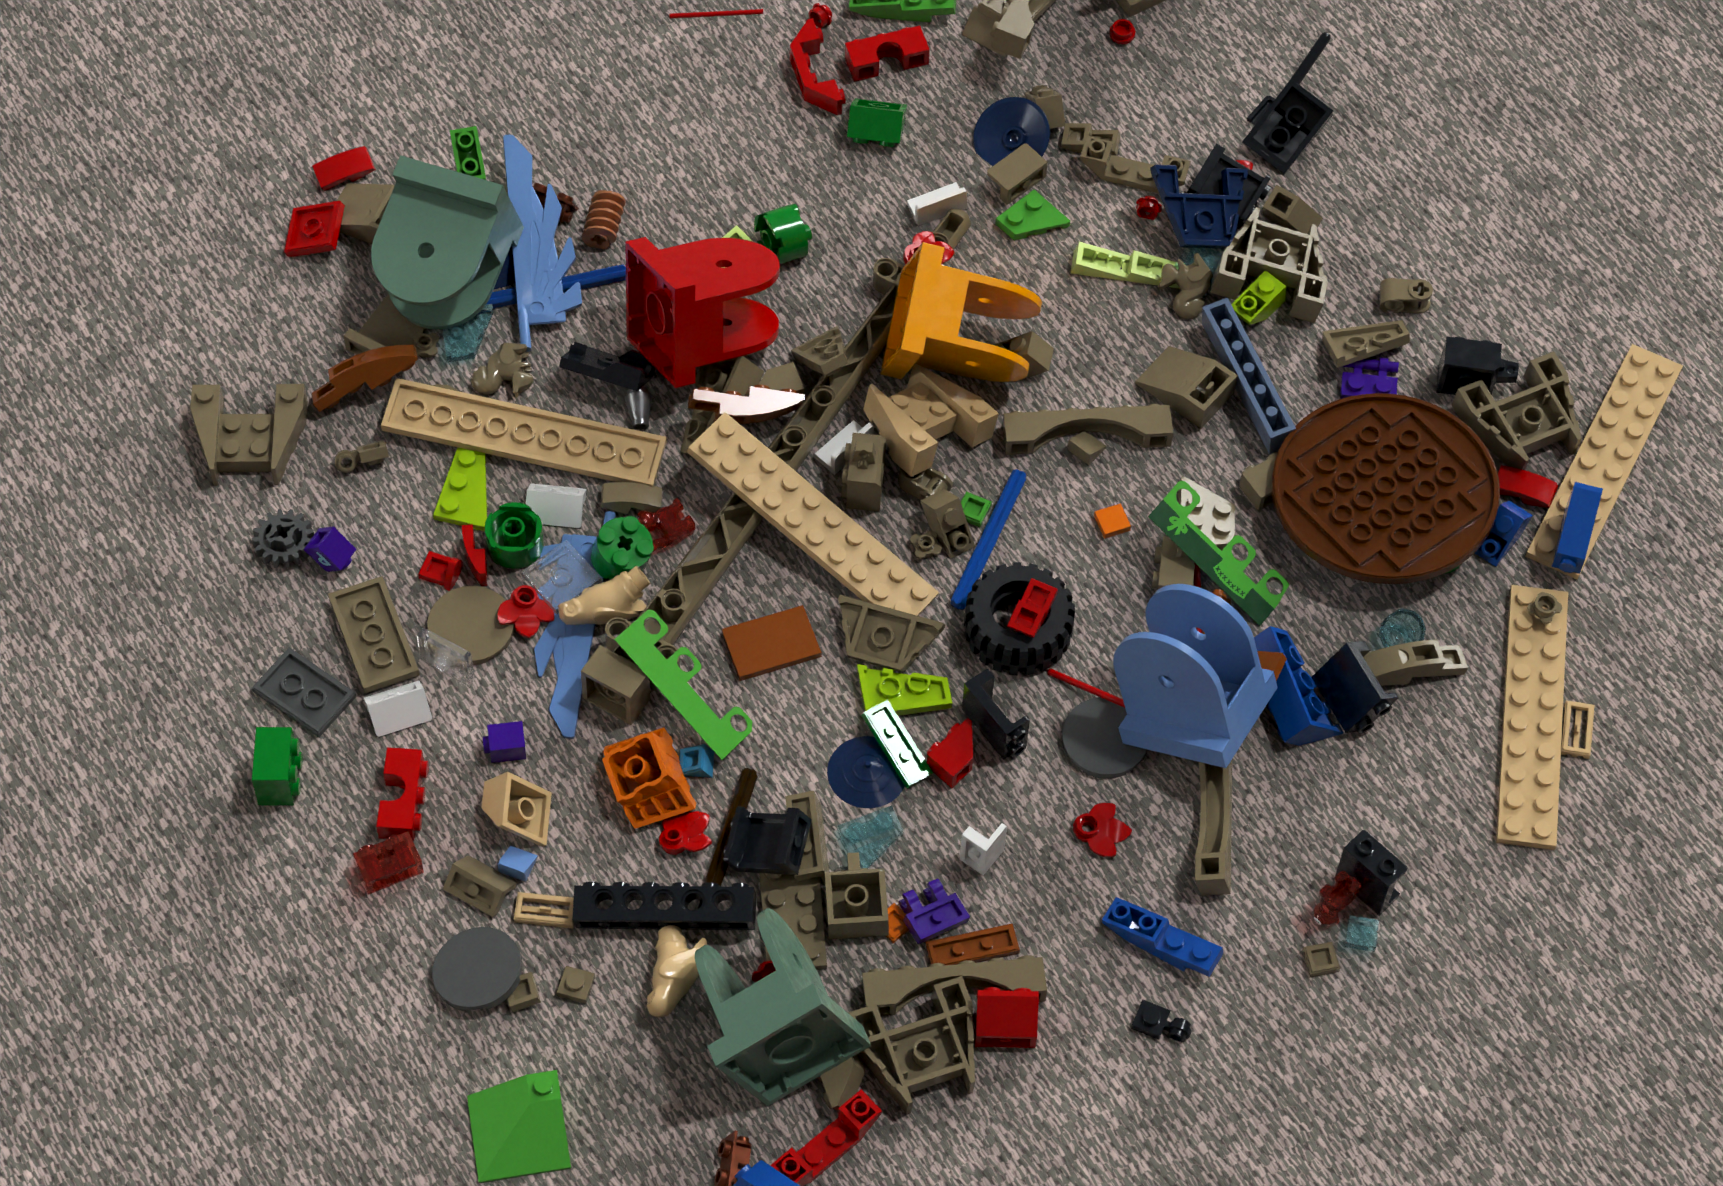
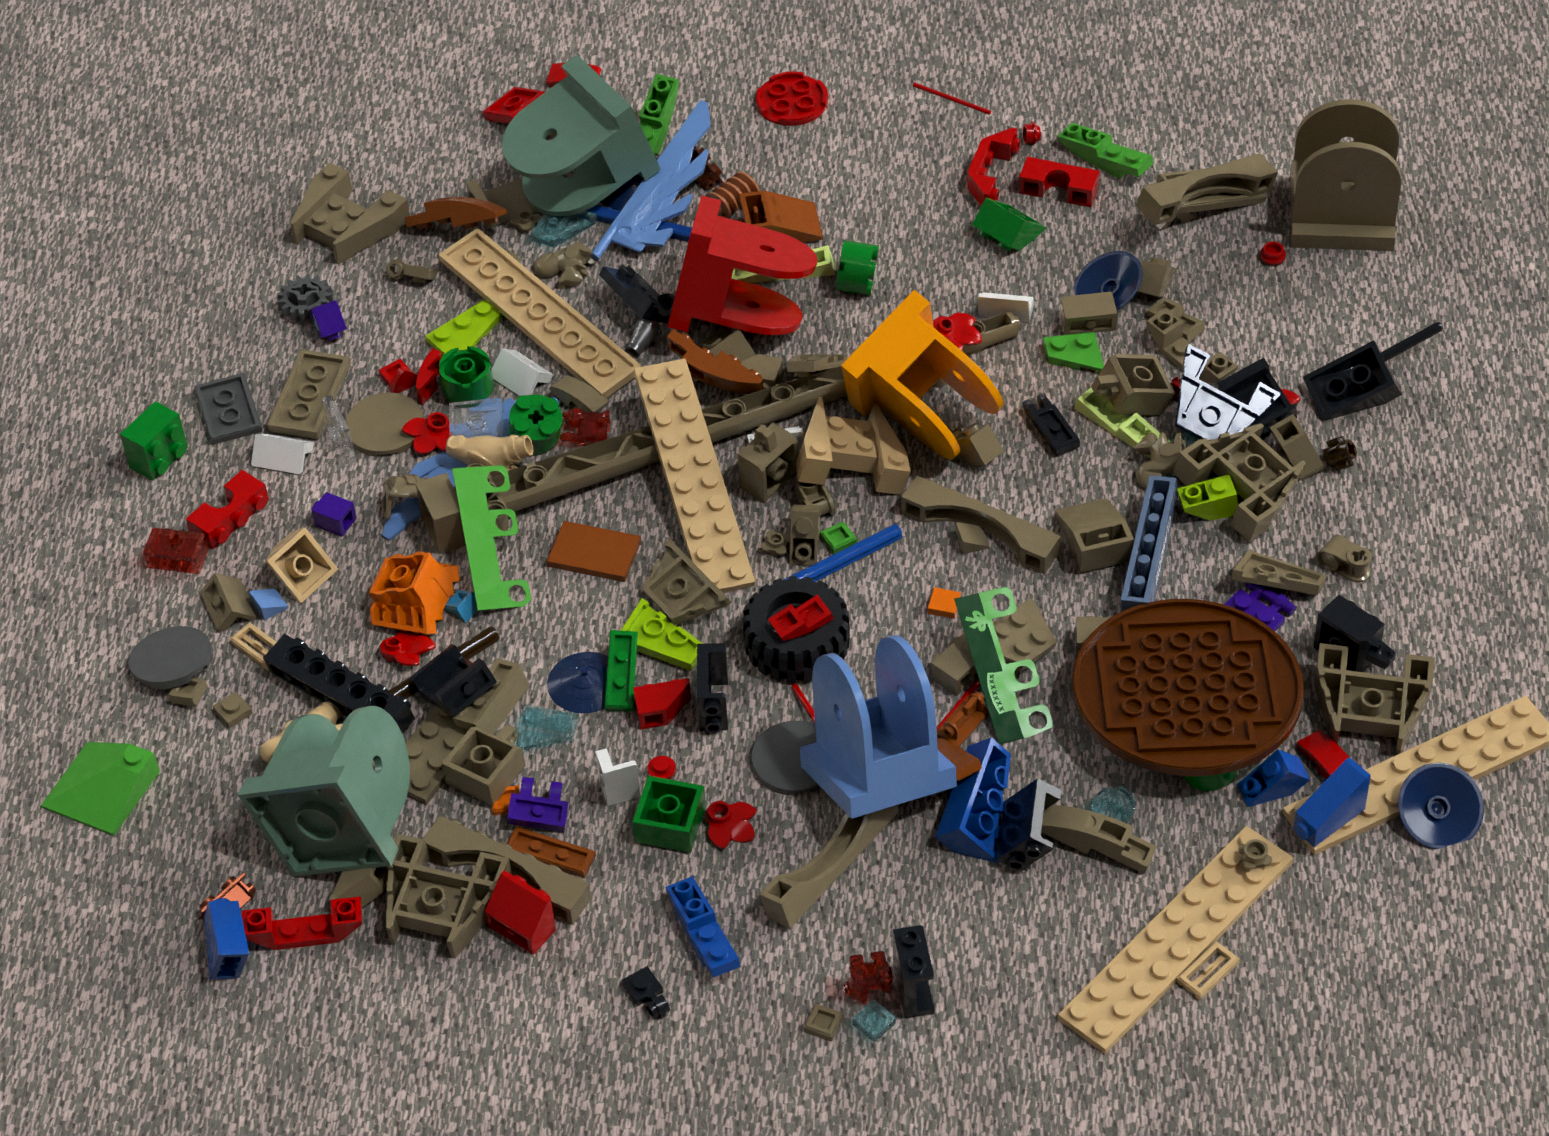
camera: 40 degrees right, 10 degrees down
(554, 681) = (398, 487): none -> dark tan piece
(569, 88) = (791, 99): none -> red tile
(668, 219) = (782, 214): none -> dark orange slope
(1004, 812) = (661, 767): none -> red plate
(1053, 852) = (669, 814): none -> green brick
(1069, 300) = (1051, 425): none -> black hinge
(1117, 224) = (1134, 384): none -> dark tan hinge
(1327, 199) = (1340, 453): none -> dark brown gear
(1646, 480) = (1440, 805): none -> dark blue hat

